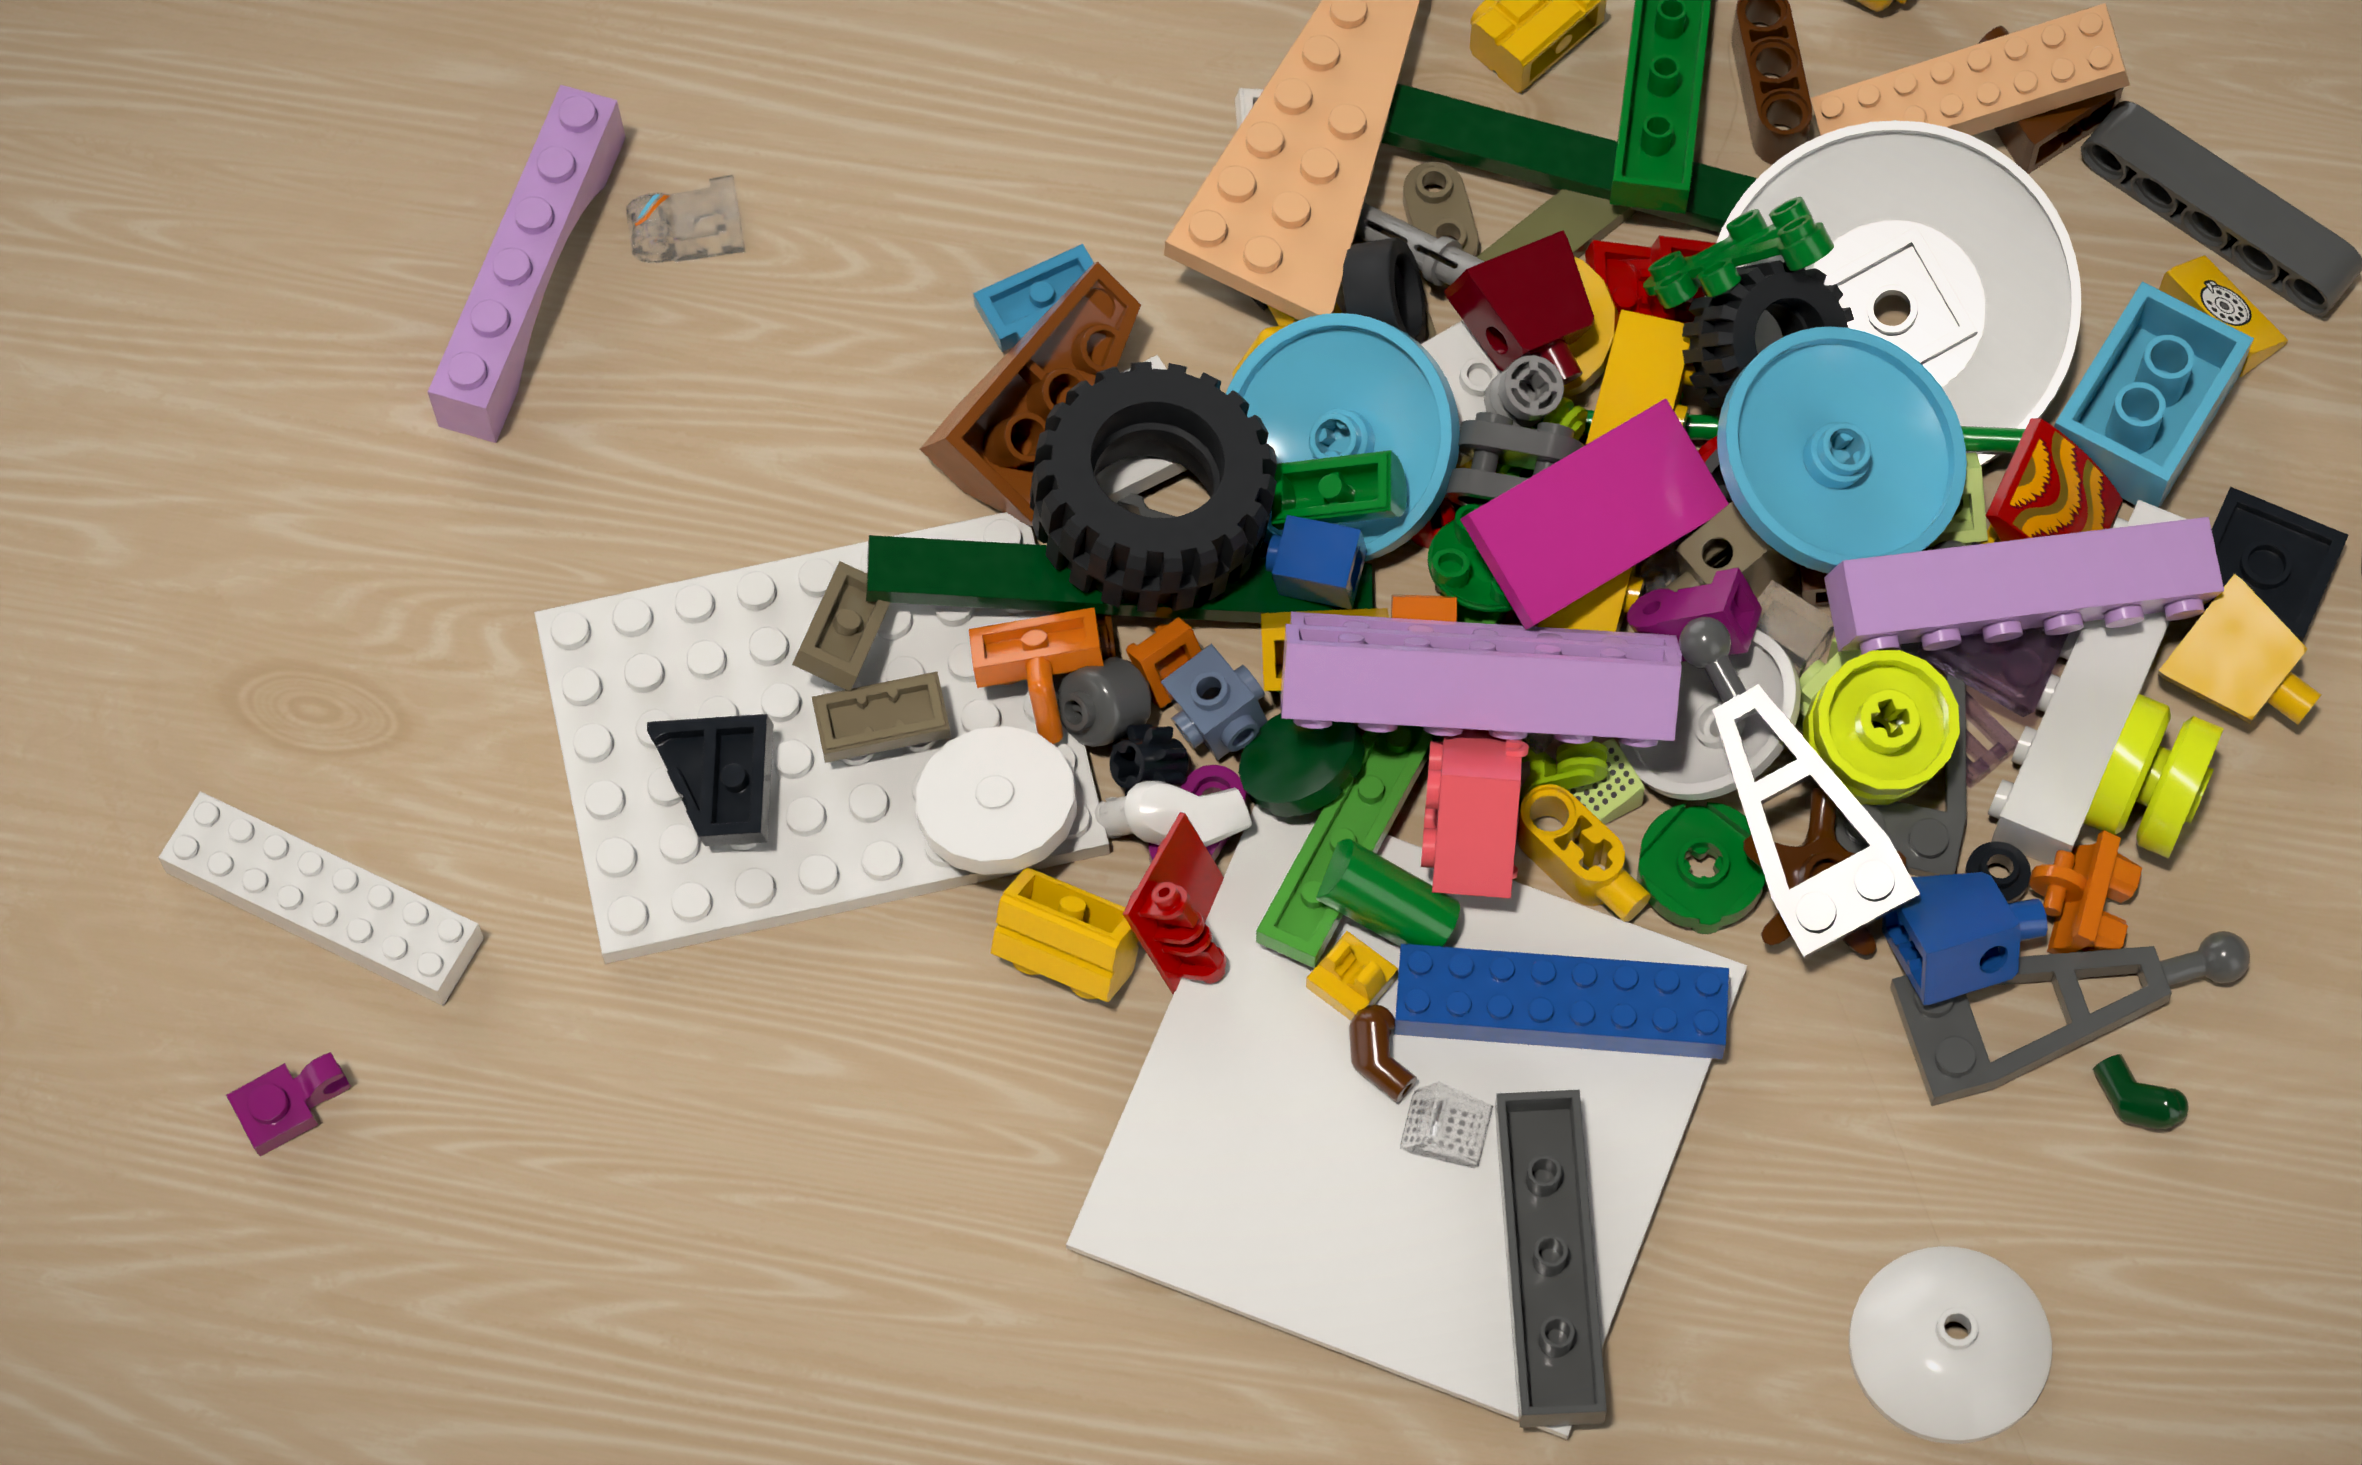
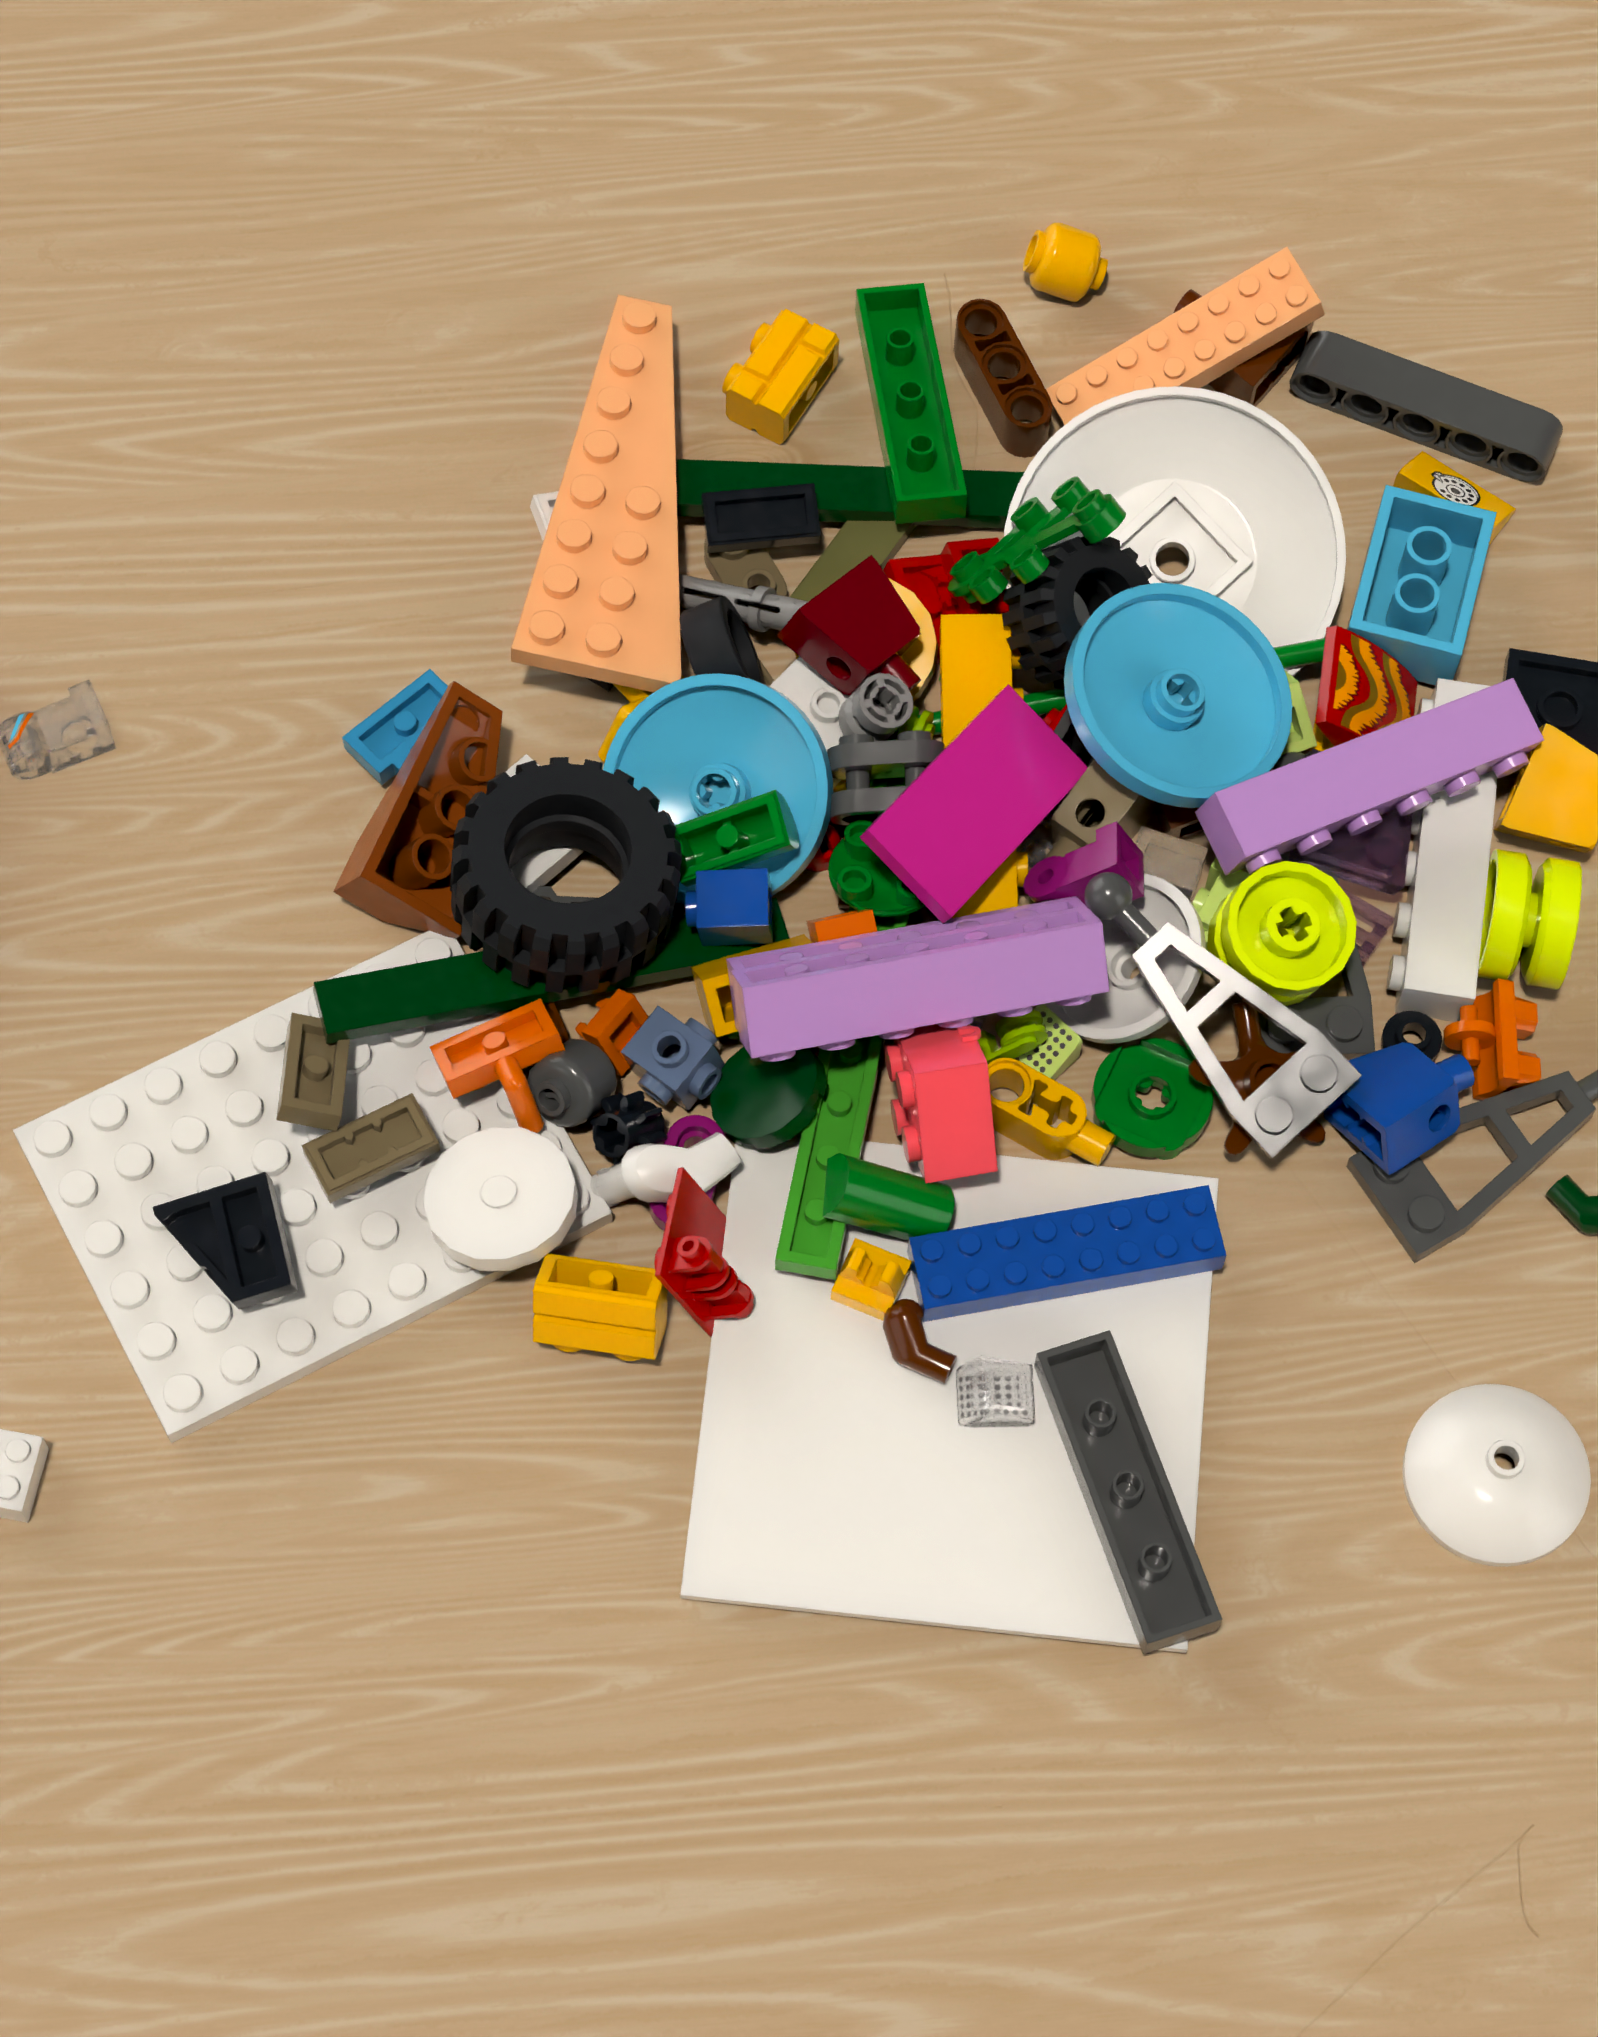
camera: 20 degrees left, 0 degrees up
(1468, 165) = (760, 518): none -> black tile

